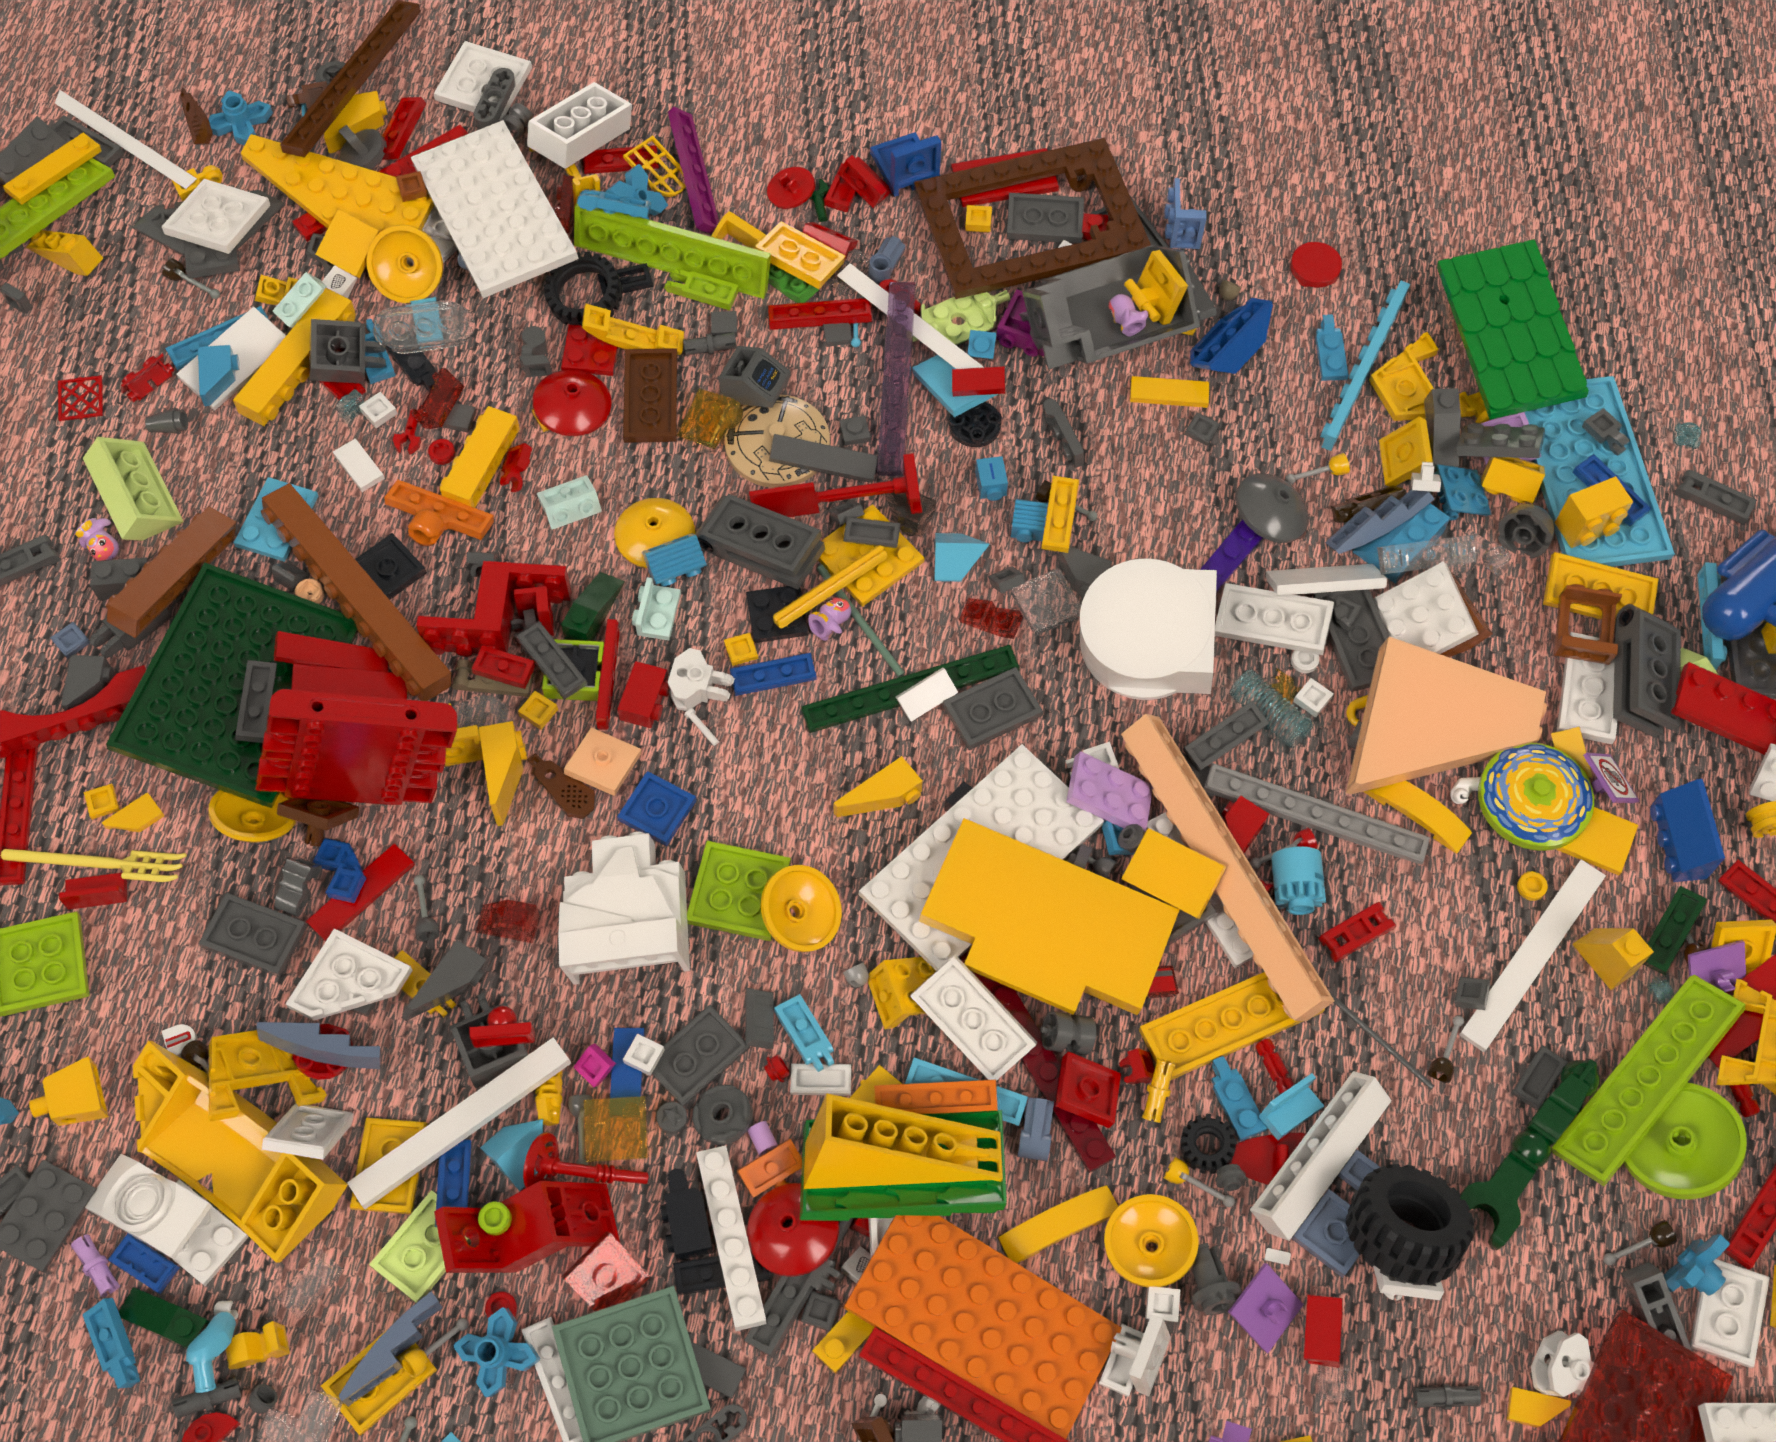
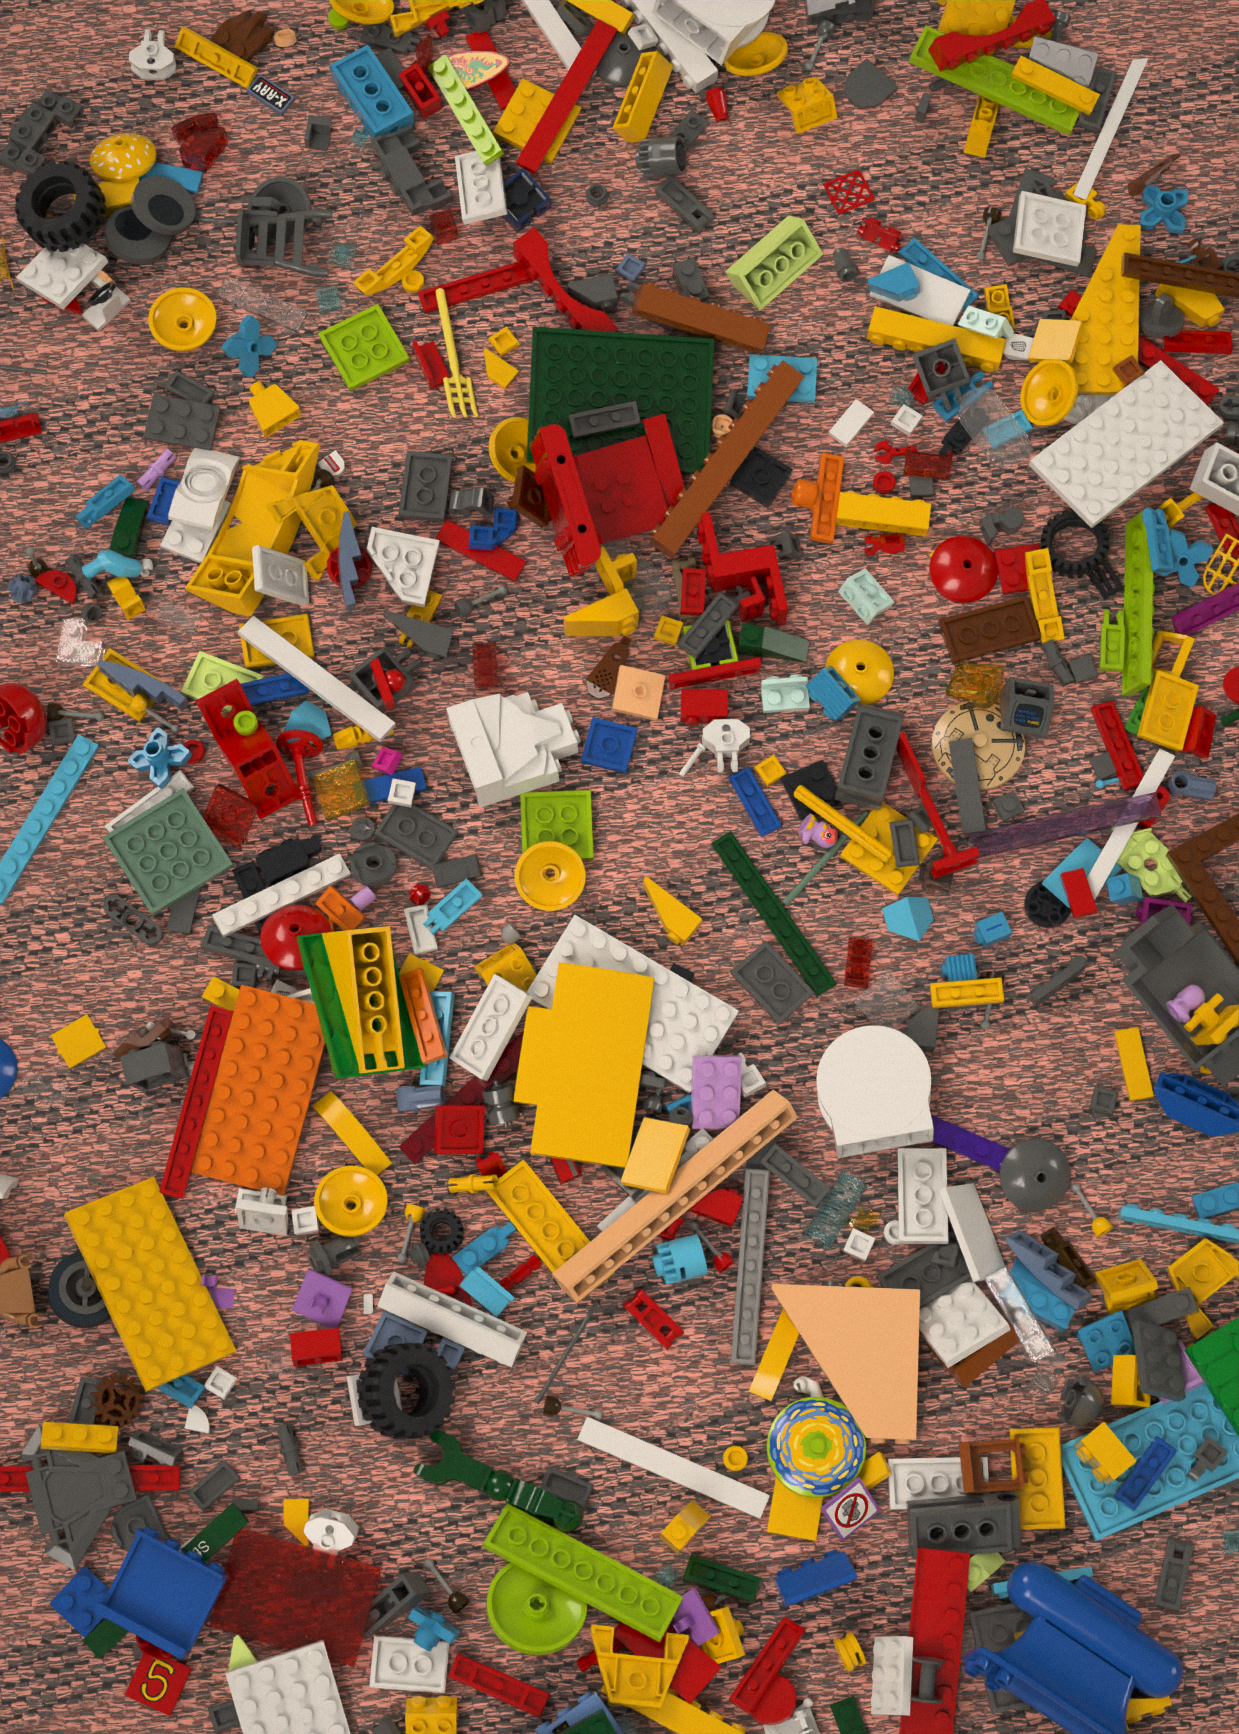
camera: 75 degrees right, 10 degrees up
(96, 540) = (718, 255): animal -> none
(564, 207) = (1153, 501): clear red plate -> none
(926, 694) = (767, 926): white tile -> none
(1006, 579) = (896, 966): dark grey tile -> none
(1426, 479) = (1093, 1298): white tile -> none
(1472, 993) = (623, 1420): dark grey tile -> none

